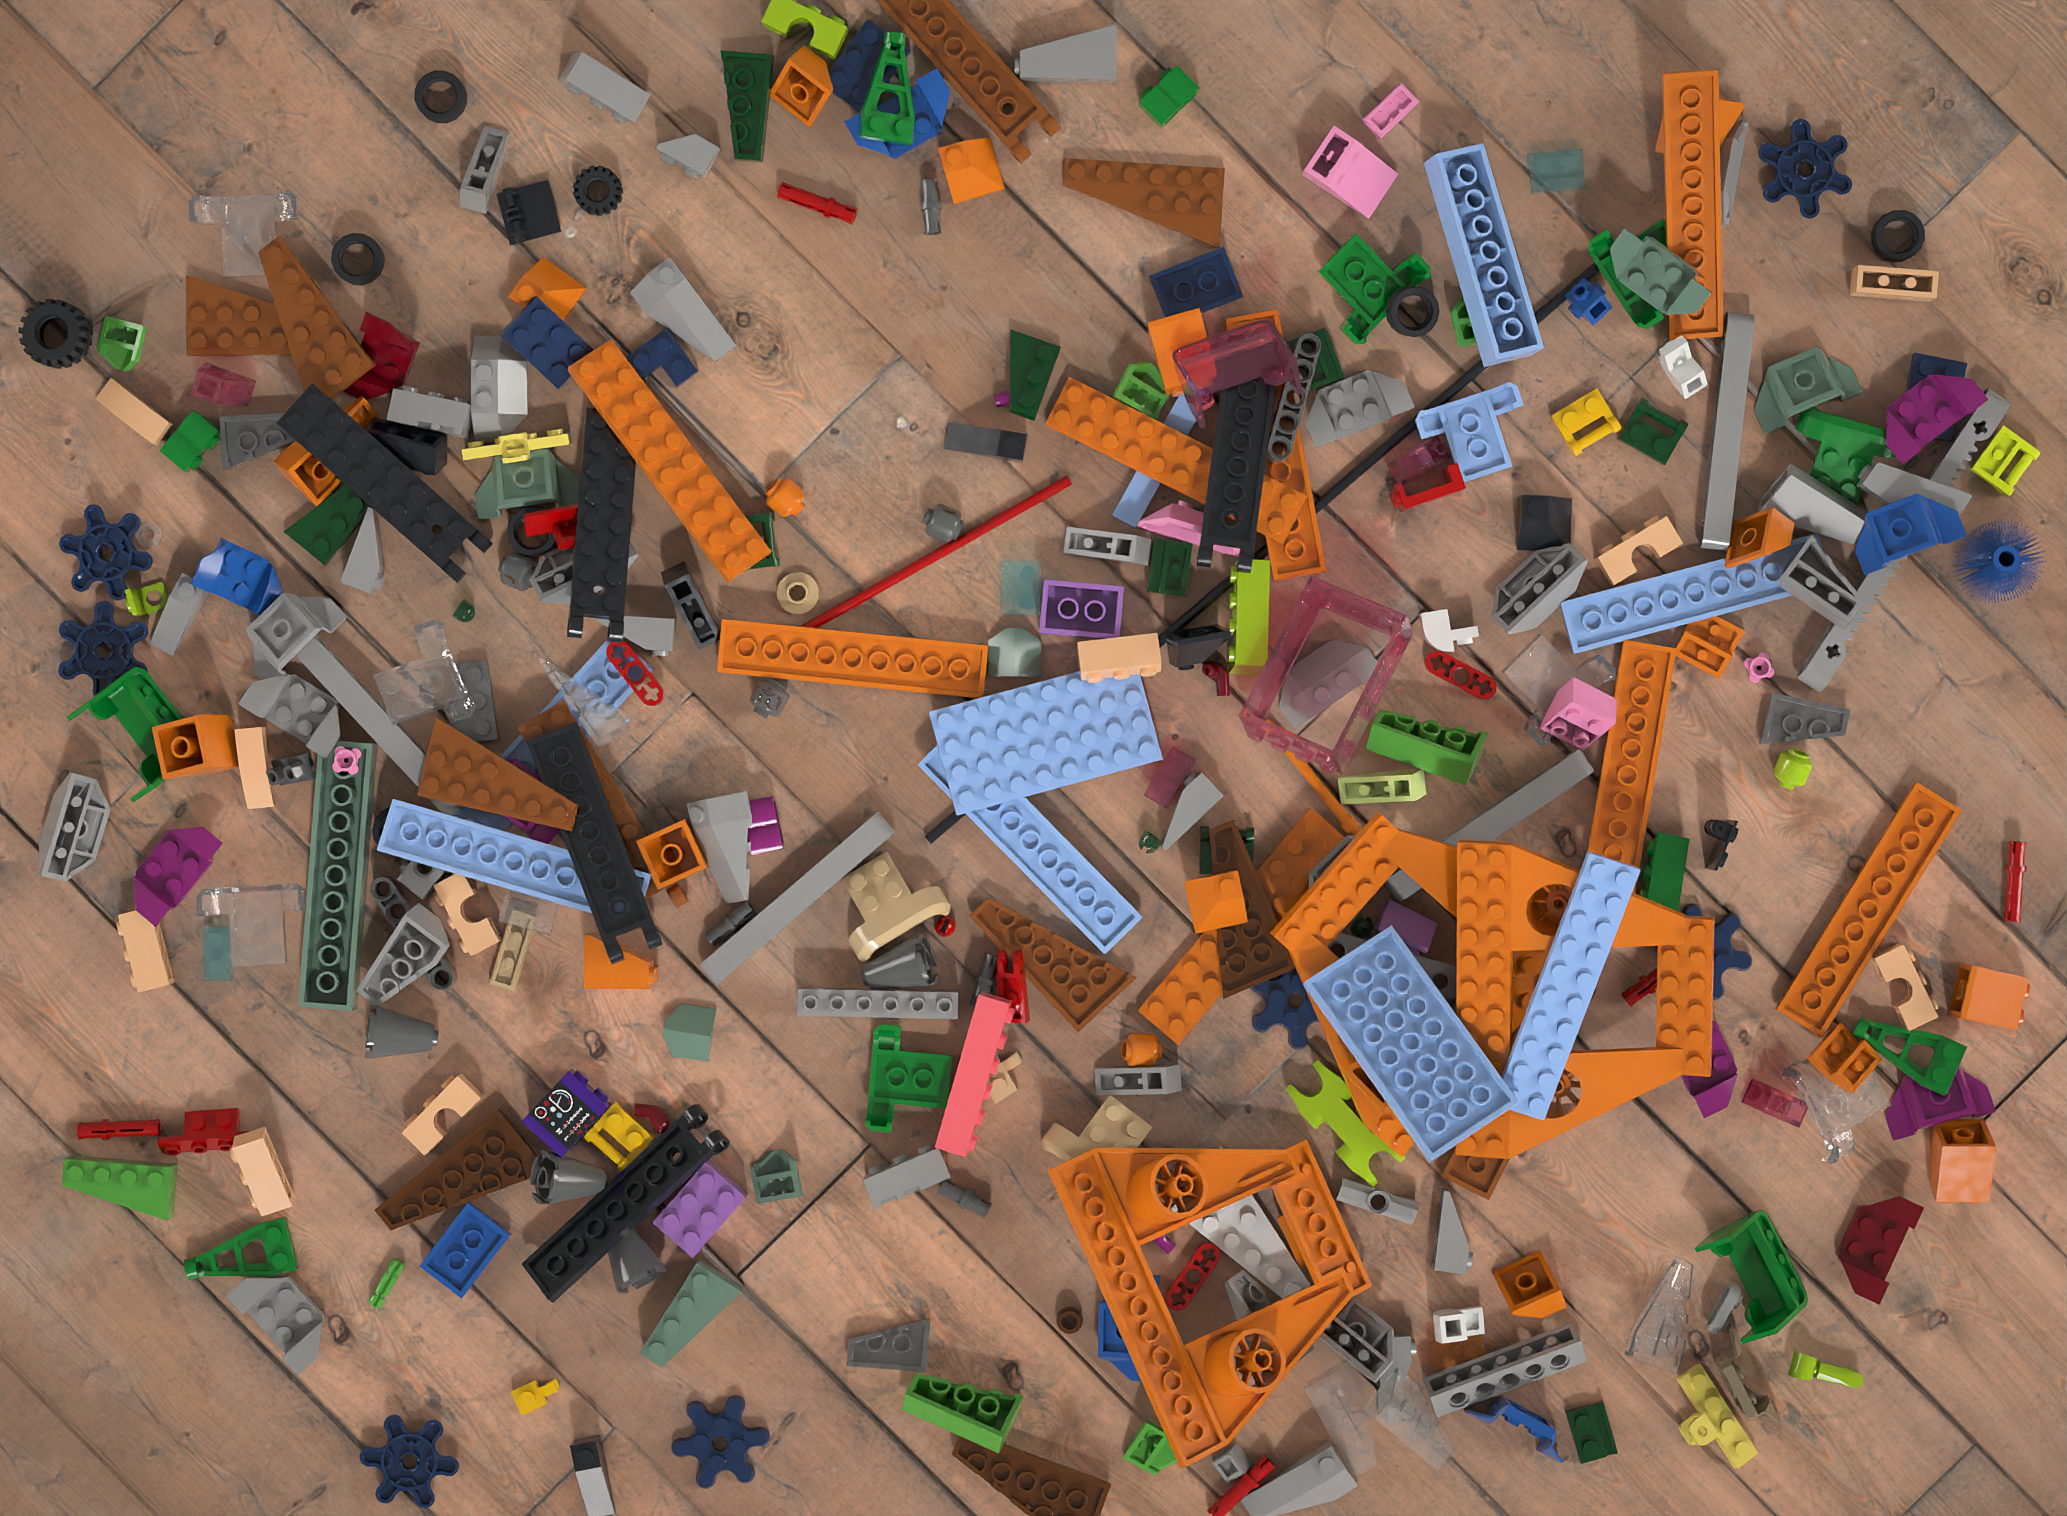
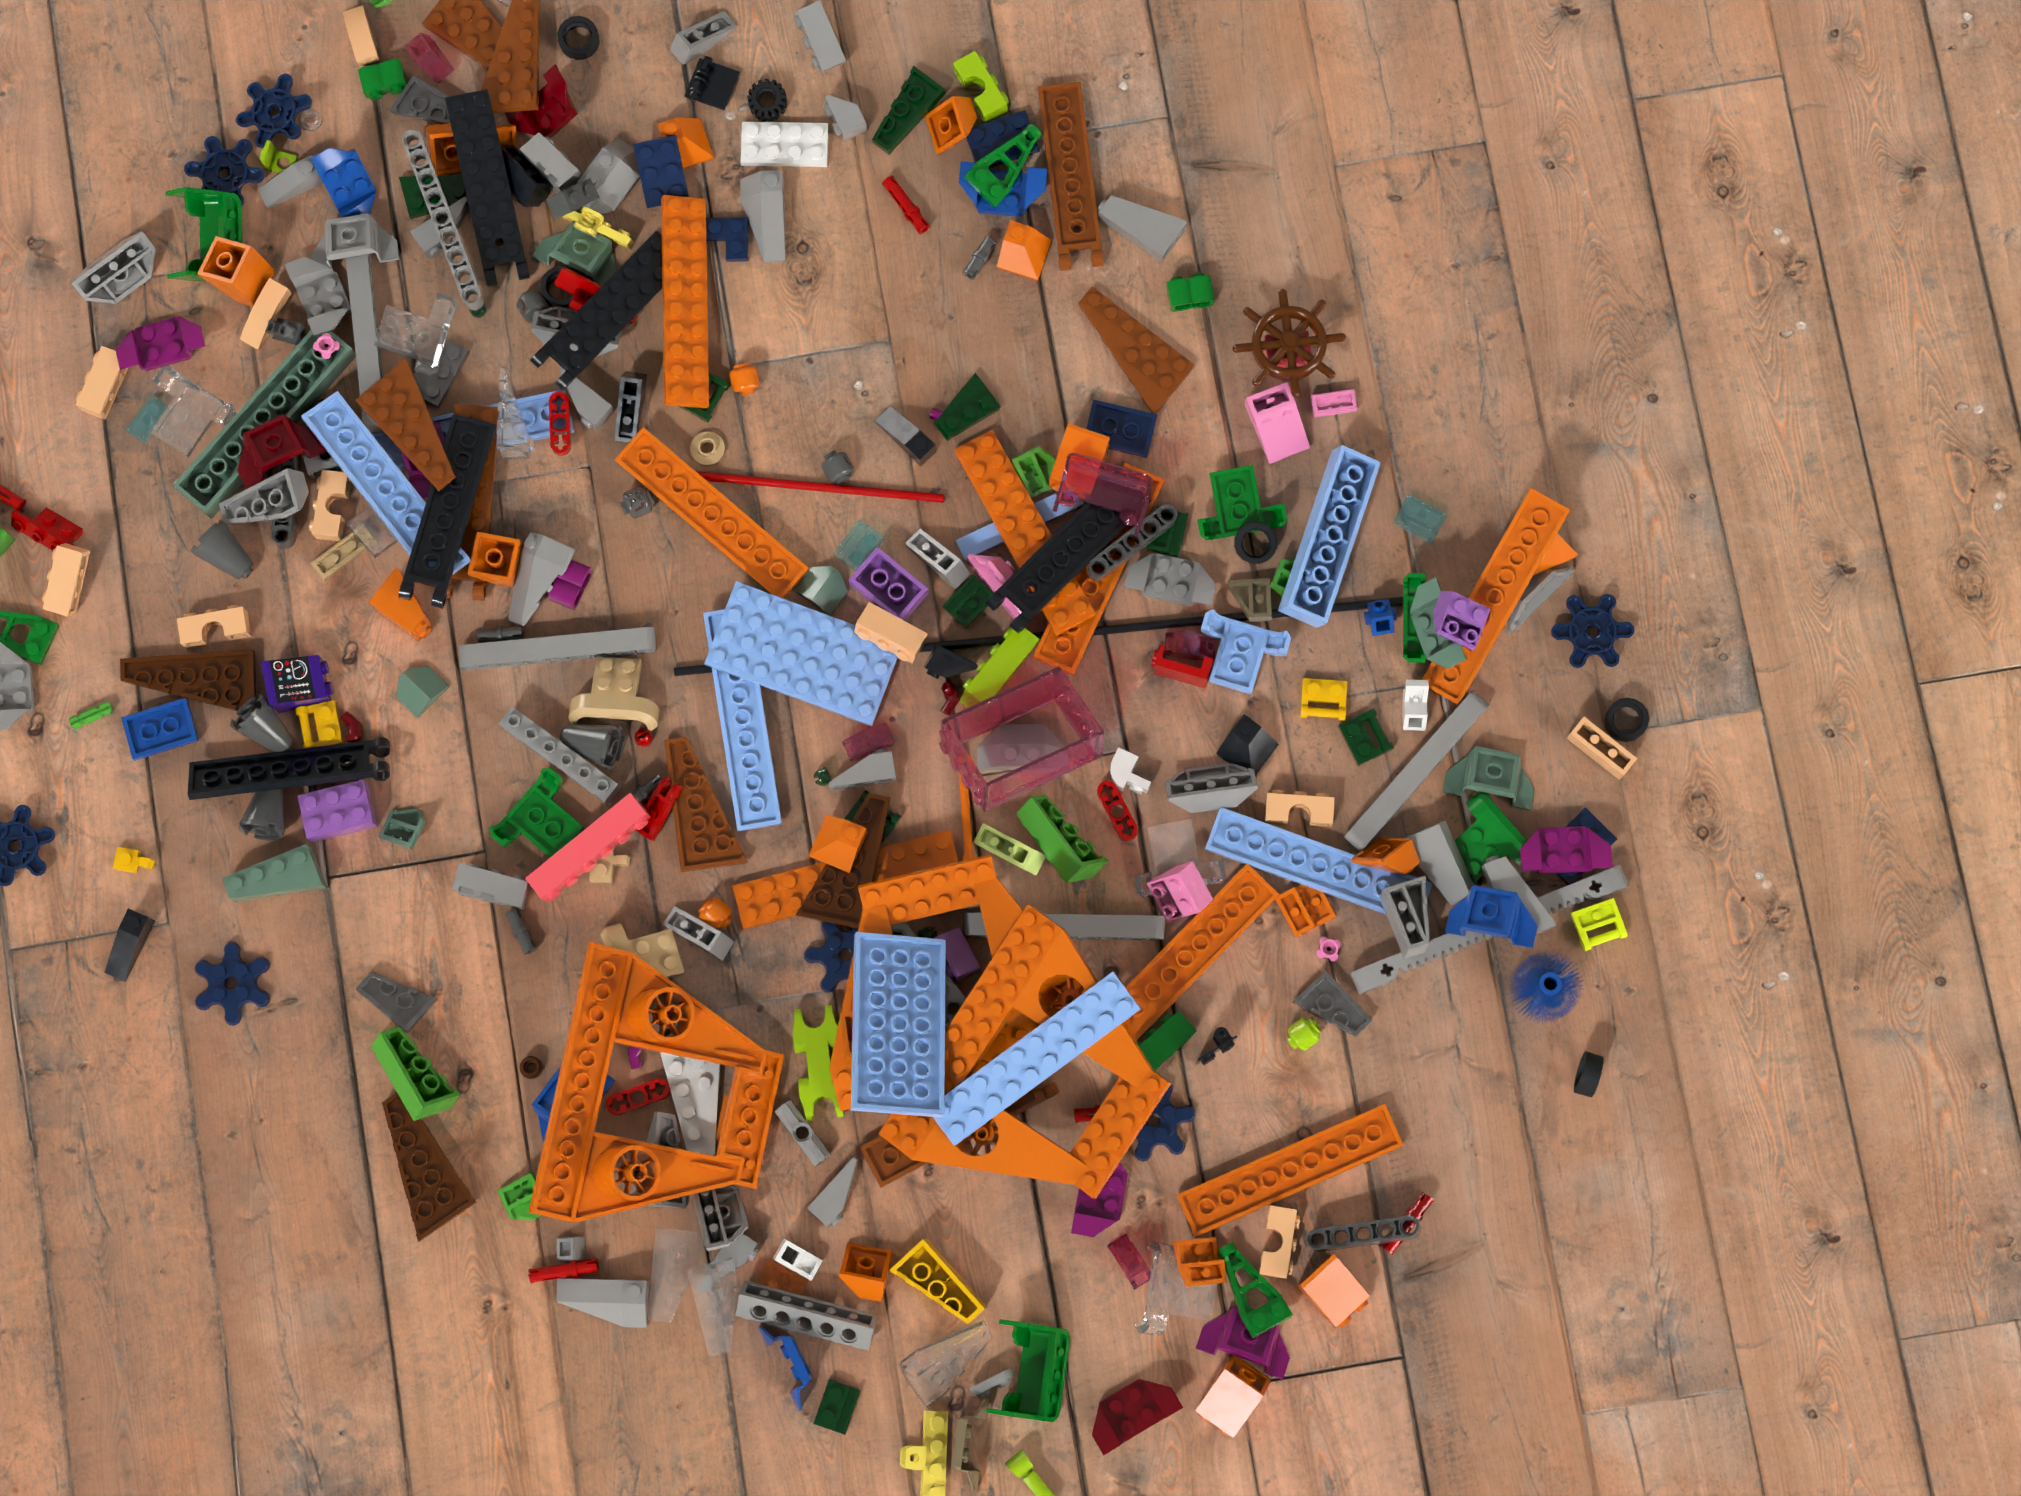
camera: 40 degrees right, 10 degrees down
(353, 545) = (441, 210): none -> light grey beam
(371, 898) = (272, 445): none -> dark red piece
(482, 436) = (572, 198): none -> dark grey brick
(648, 224) = (784, 144): none -> white plate
(1309, 84) = (1289, 346): none -> reddish brown brick
(1448, 368) = (1253, 598): none -> dark tan wing
(1600, 1248) = (939, 1281): none -> yellow wedge
(1678, 257) = (1459, 619): none -> medium lavender slope
(1996, 919) = (1353, 1229): none -> dark grey beam

